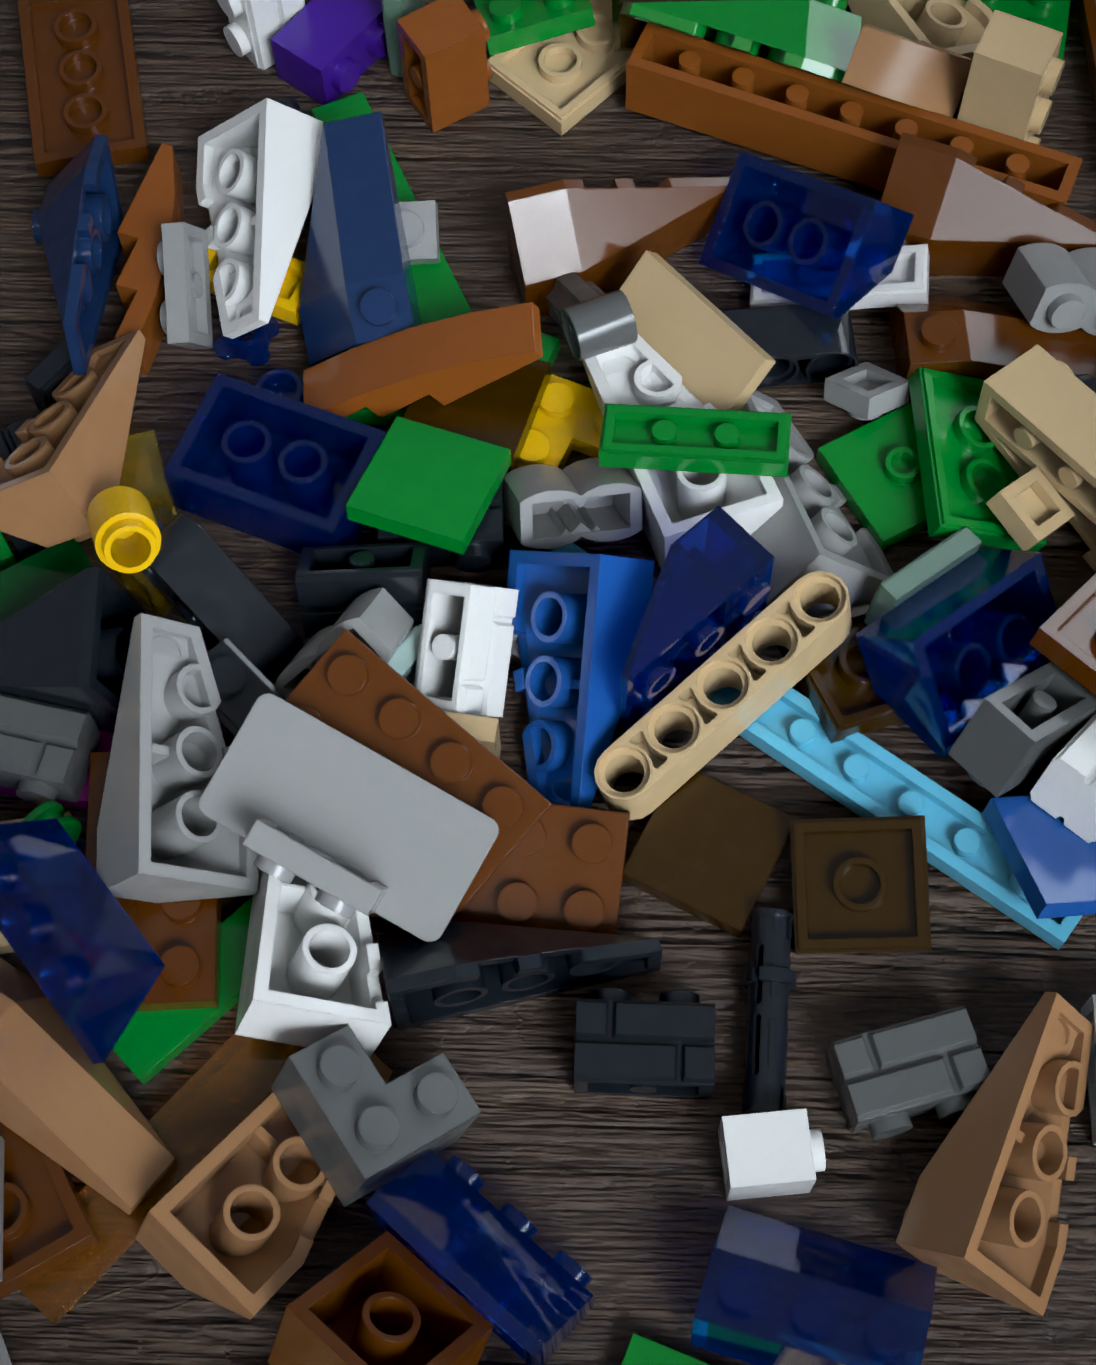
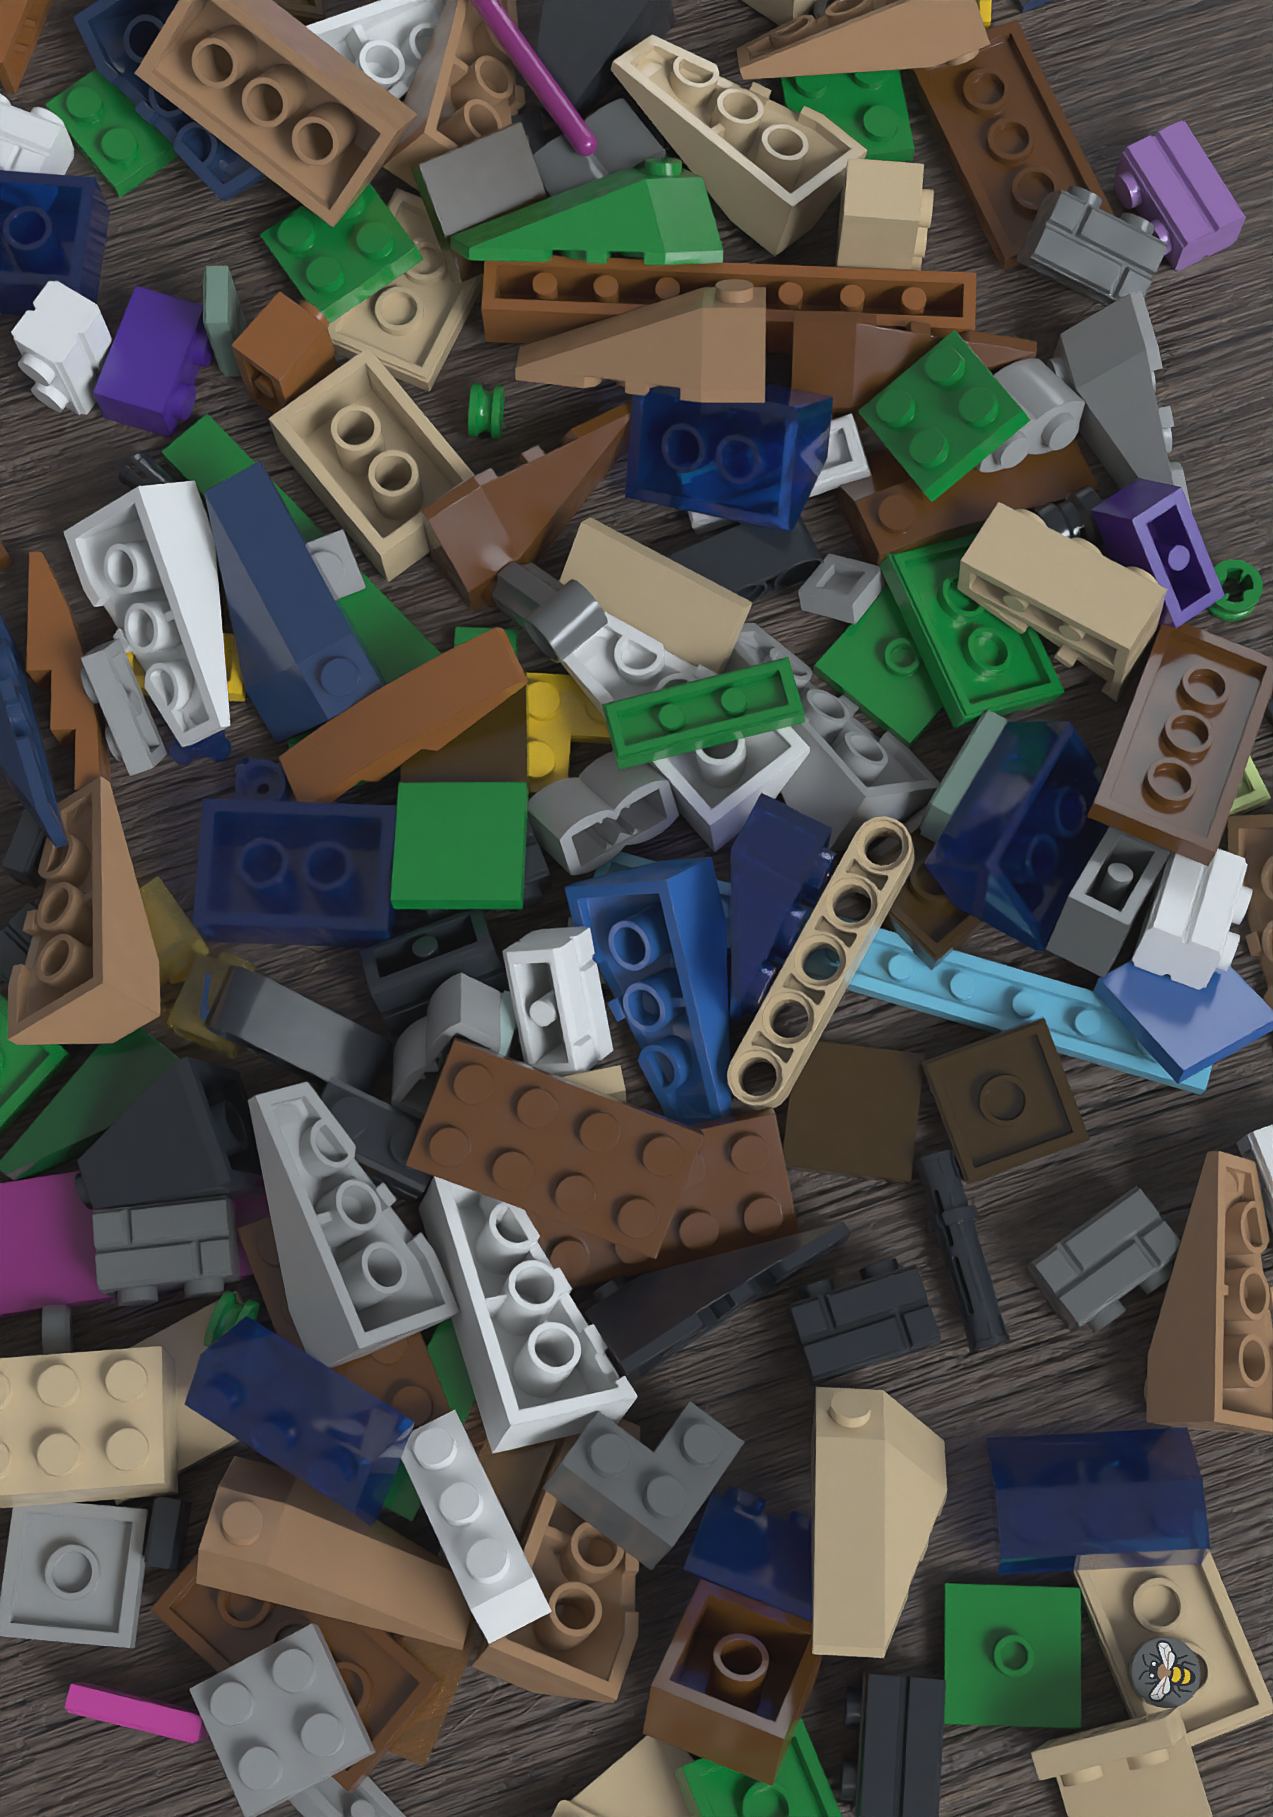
camera: 20 degrees left, 10 degrees up
(123, 529) = (194, 1010): yellow brick -> none
(182, 1094) = (473, 1528): none -> white brick
(347, 820) = (526, 1225): light grey bracket -> none
(476, 146) = (370, 459): none -> tan brick
(579, 1224) = (872, 1514): none -> tan wedge
(602, 157) = (486, 410): none -> green bush
(769, 1154) = (1009, 1381): white brick -> none
(809, 136) = (695, 341): none -> medium nougat wedge
(907, 70) = (773, 236): medium nougat slope -> none
(1012, 261) = (944, 415): none -> green plate
(1030, 509) = (1042, 670): tan plate -> none

